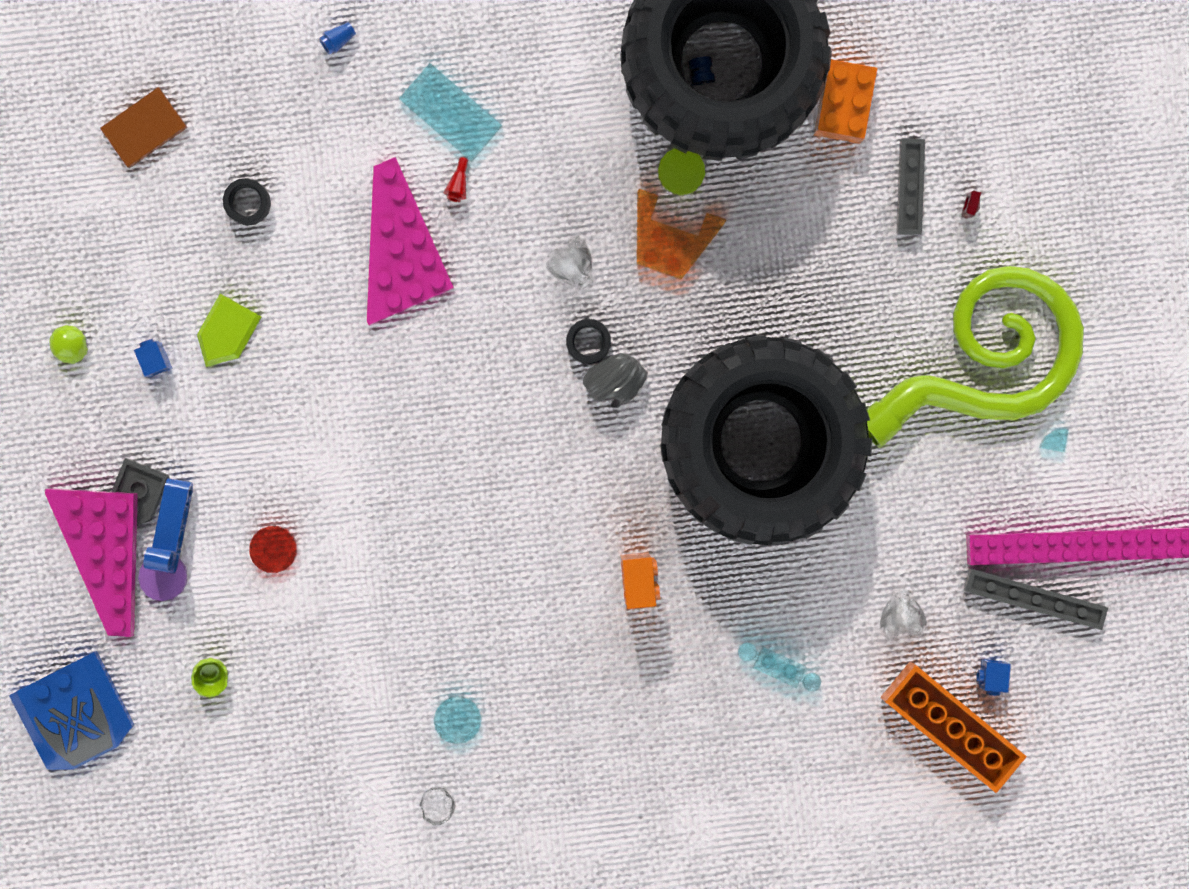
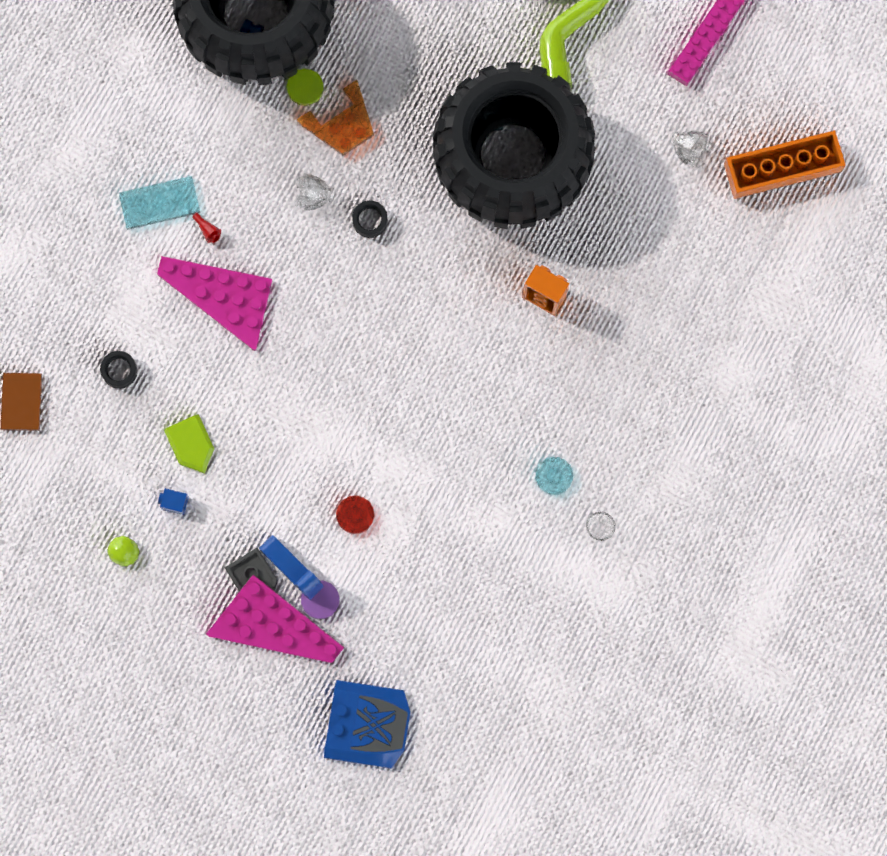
camera: 50 degrees left, 10 degrees down
(209, 677) = (408, 613): lime hair -> none
(337, 37) = (58, 239): blue cone -> none
(615, 379) = (405, 216): dark grey hair -> none
(779, 667) = (668, 246): clear light blue plate -> none
(994, 676) = (770, 118): blue brick -> none
(1035, 599) = (739, 59): dark grey plate -> none

